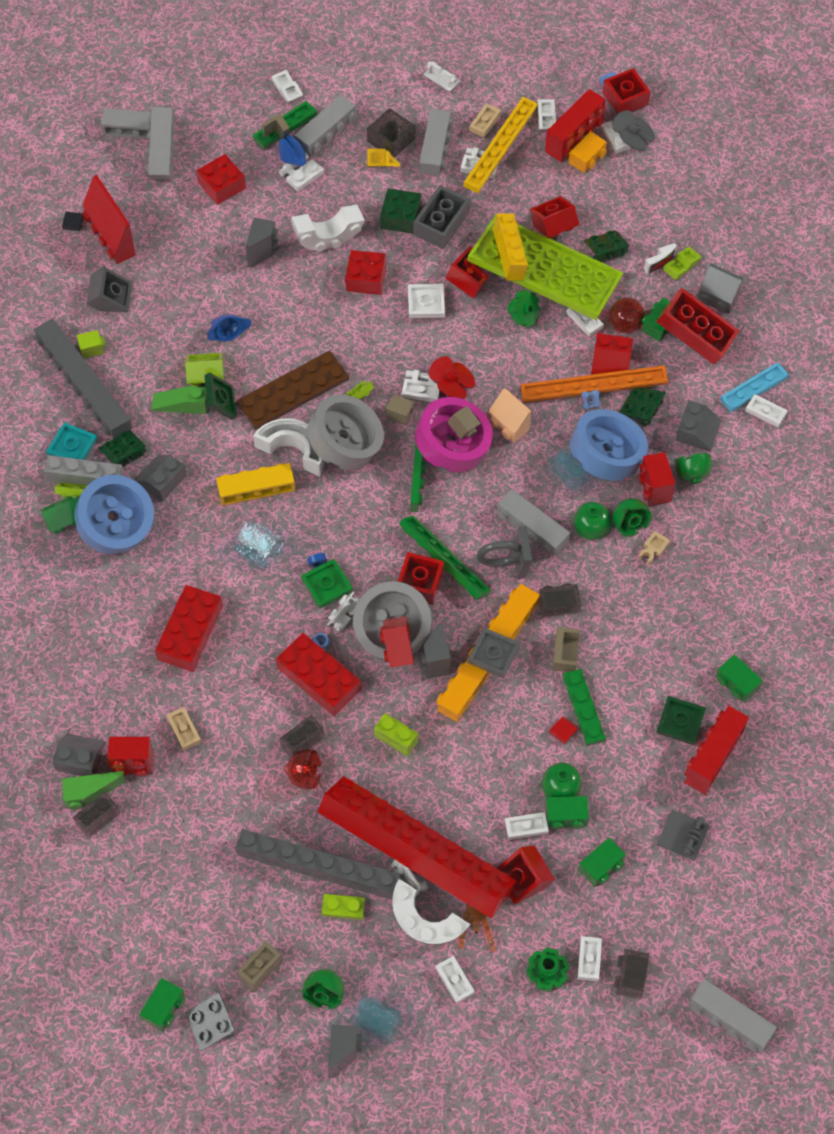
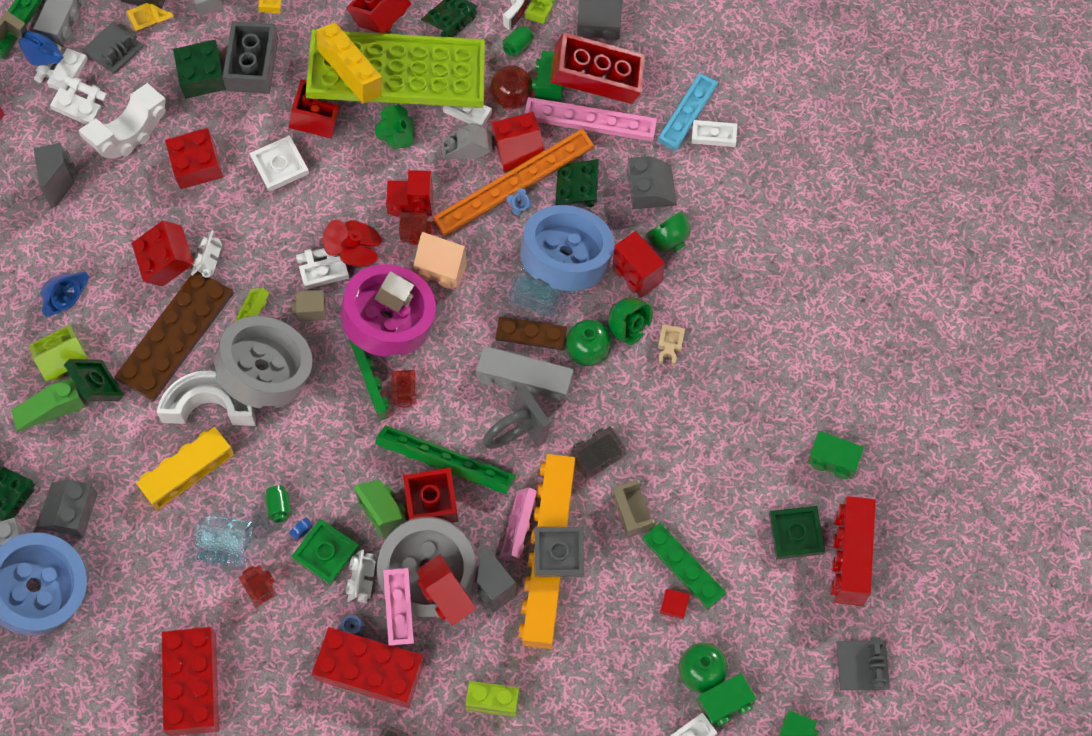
camera: 25 degrees left, 5 degrees up
(268, 584) = (258, 584): none -> clear red brick
(297, 200) = (75, 106): none -> white plate
(309, 536) = (277, 504): none -> green brick
(310, 328) = (162, 253): none -> red brick
(346, 171) = (113, 47): none -> dark grey hinge
(346, 339) = (202, 260): none -> white hinge
(359, 638) = (398, 606): none -> bright pink plate
(380, 564) = (380, 506): none -> bright green slope
(439, 494) = (404, 388): none -> clear red brick
(475, 625) = (518, 524): none -> bright pink plate
(501, 381) = (412, 226): none -> clear red brick
(512, 362) = (410, 195): none -> red brick
(552, 496) = (531, 333): none -> reddish brown plate
(573, 342) = (467, 143): none -> light grey slope
(648, 283) = (517, 41): none -> green brick
(677, 363) = (592, 119): none -> bright pink plate

